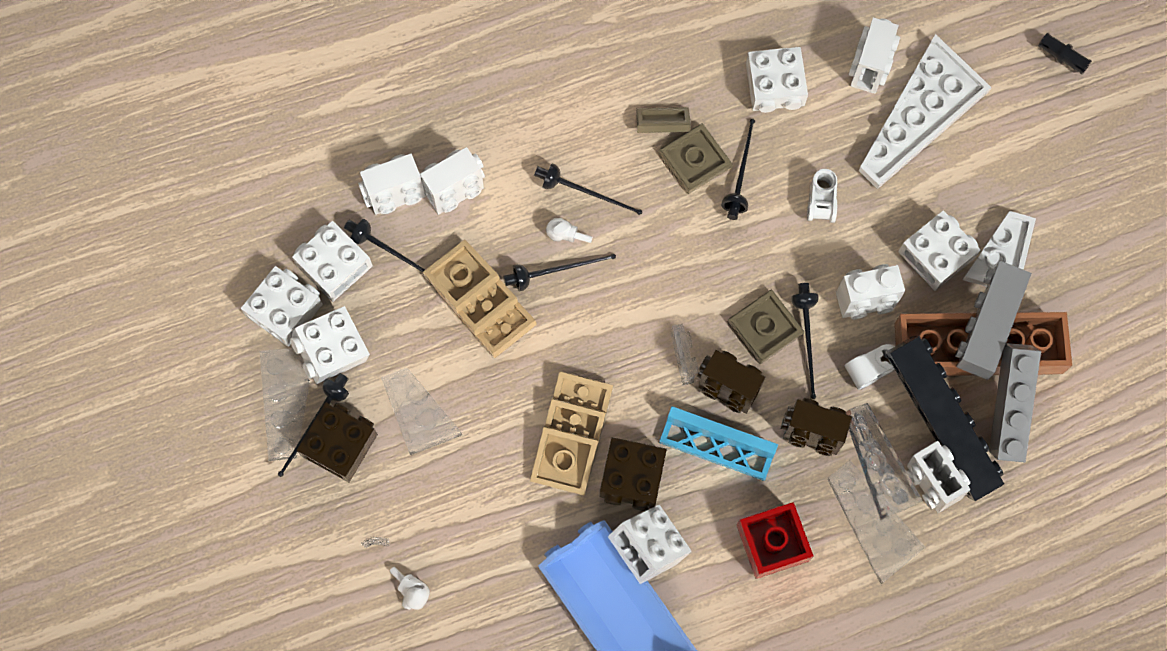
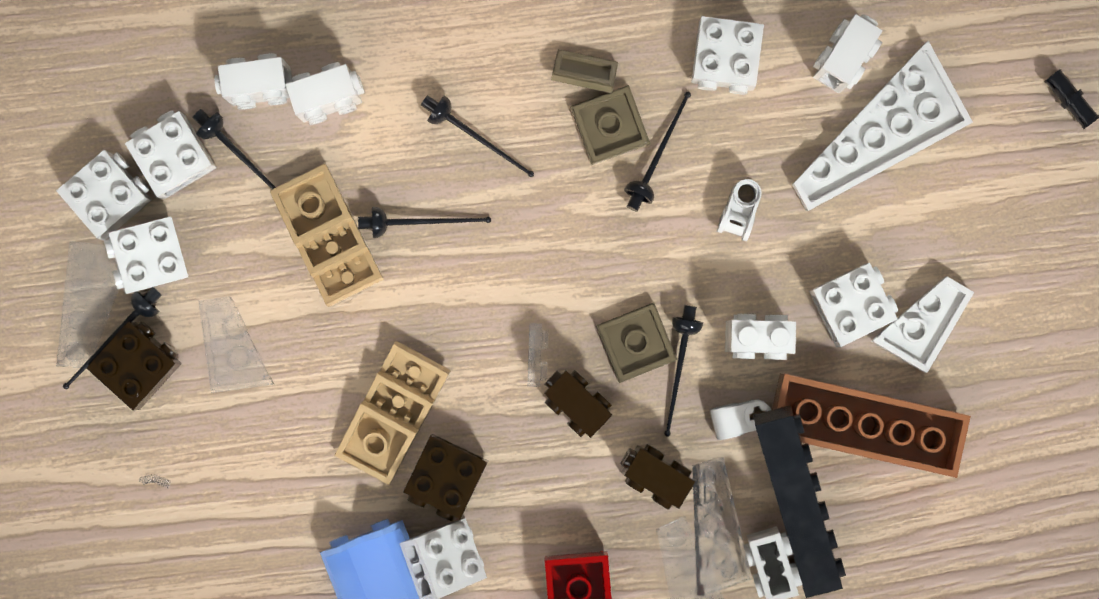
camera: 15 degrees right, 15 degrees up
(414, 590) = (183, 544): white piece -> none
(560, 229) = (436, 176): white piece -> none
(722, 434) = (554, 454): medium azure fence -> none
(993, 320) = (884, 408): light grey brick -> none
(1014, 402) = (880, 503): light grey brick -> none

